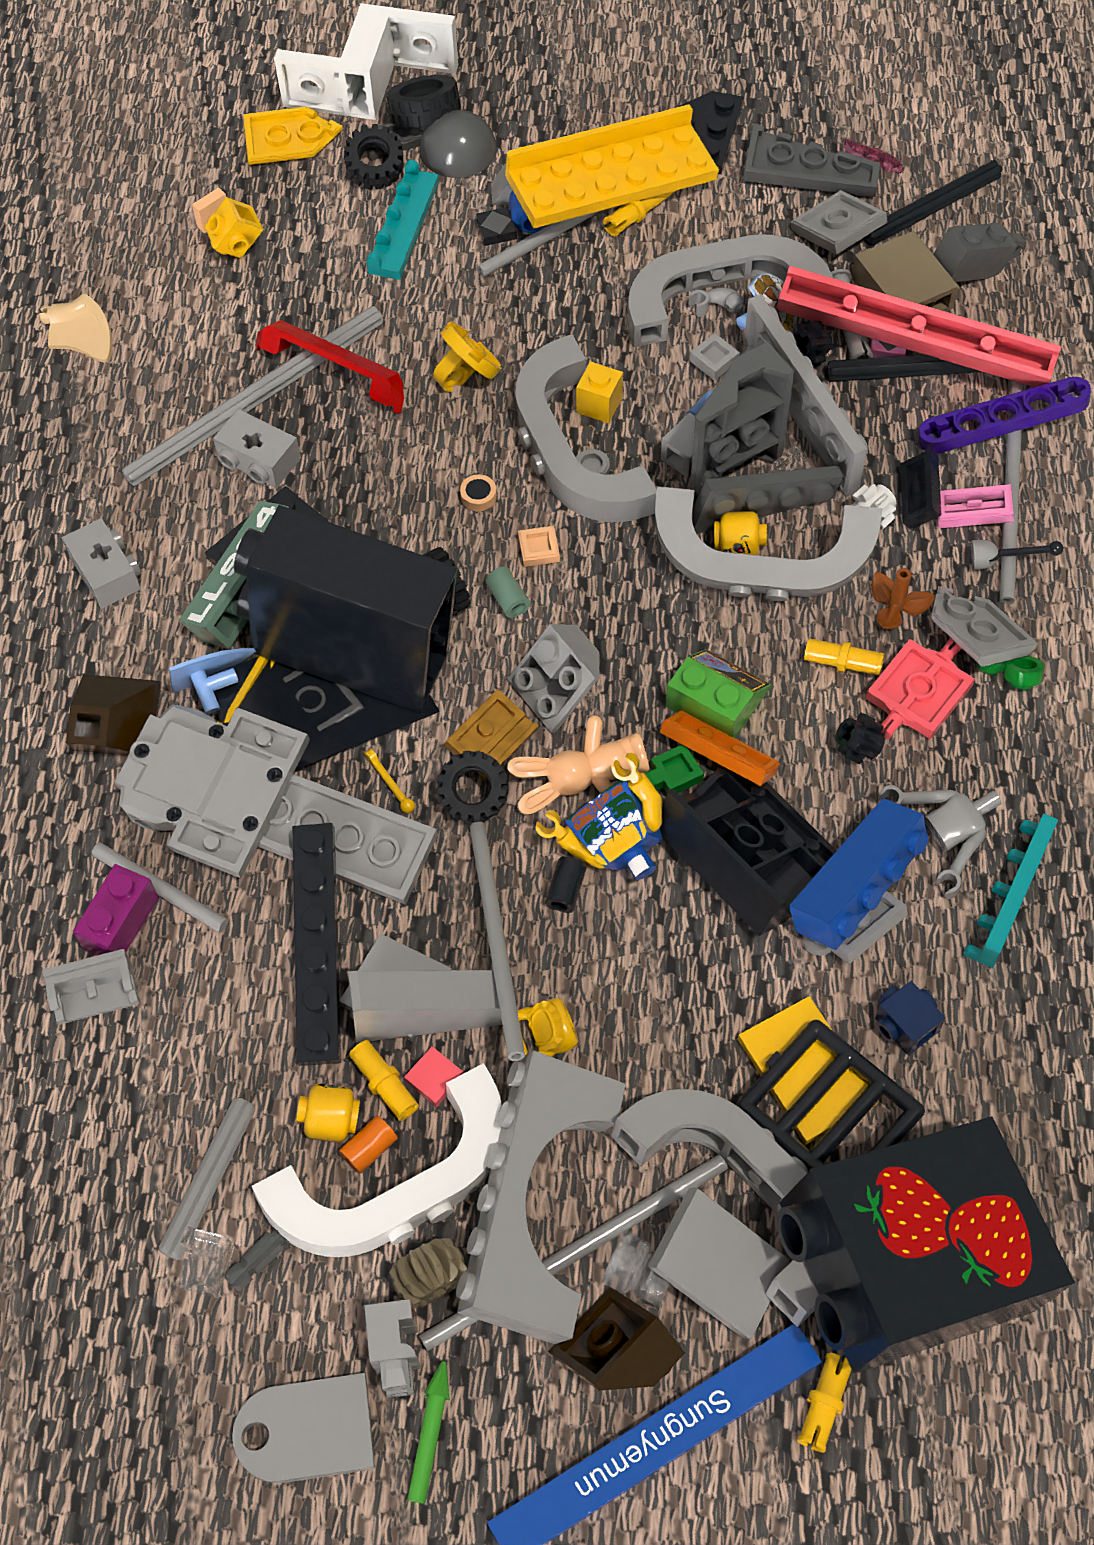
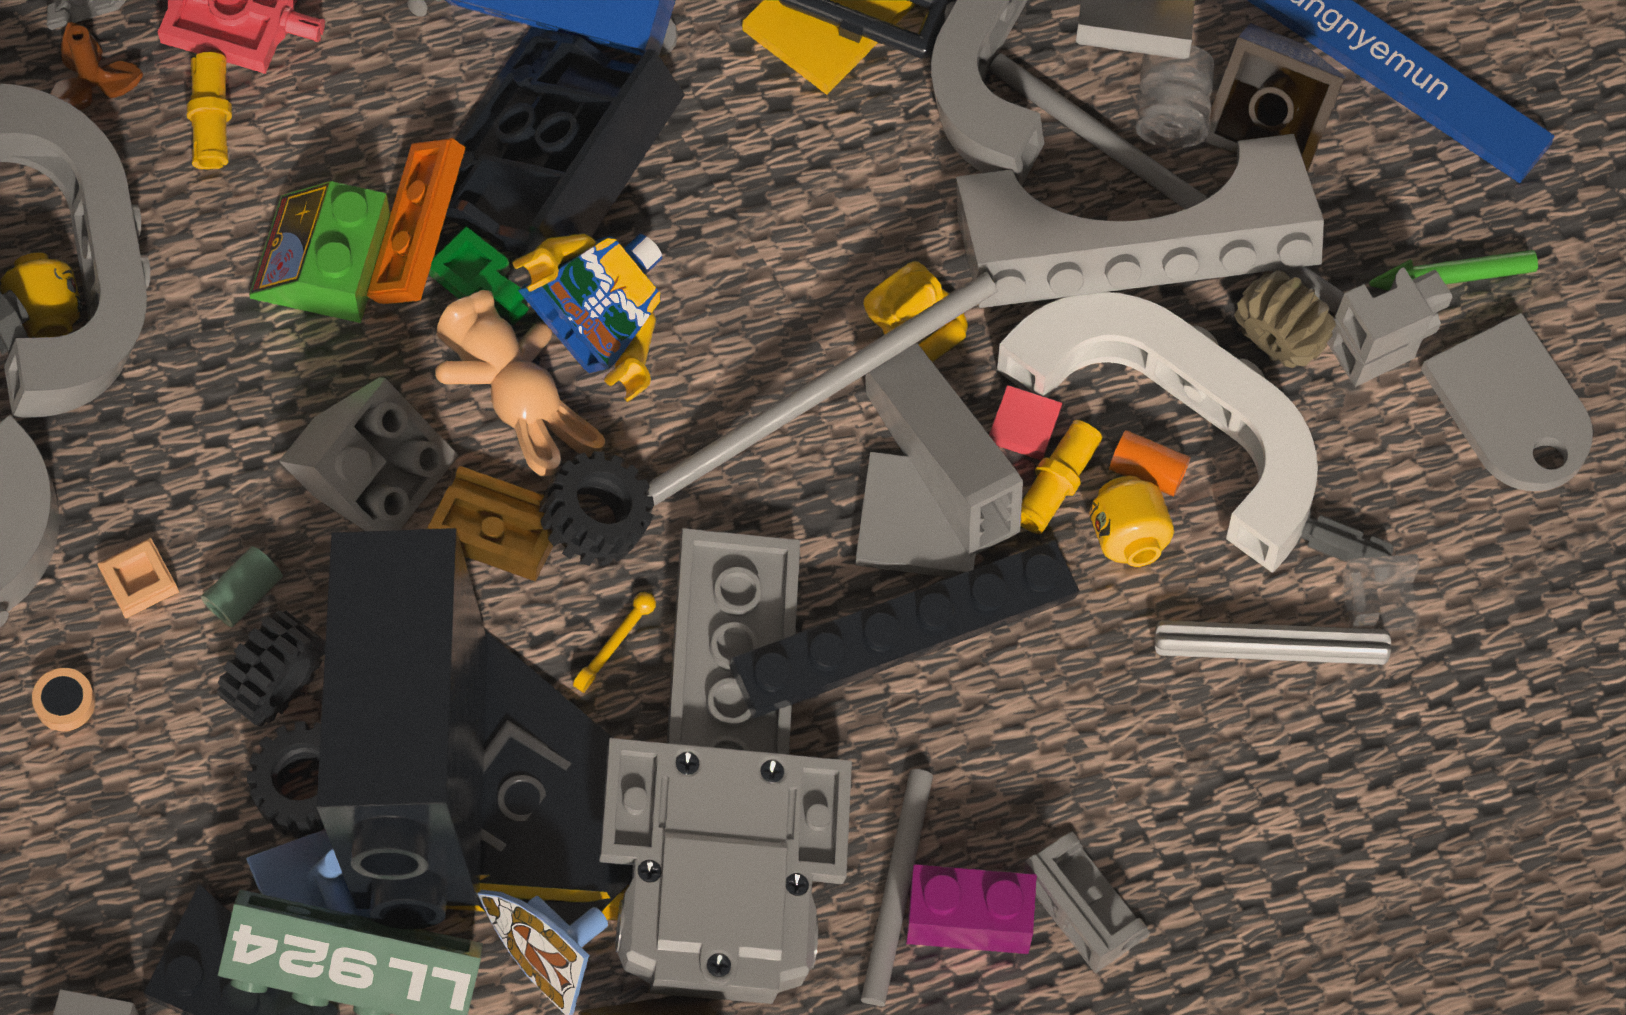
camera: 115 degrees left, 5 degrees up
(566, 884) = (694, 351): black piece -> none
(860, 738) = (342, 68): black gear -> none

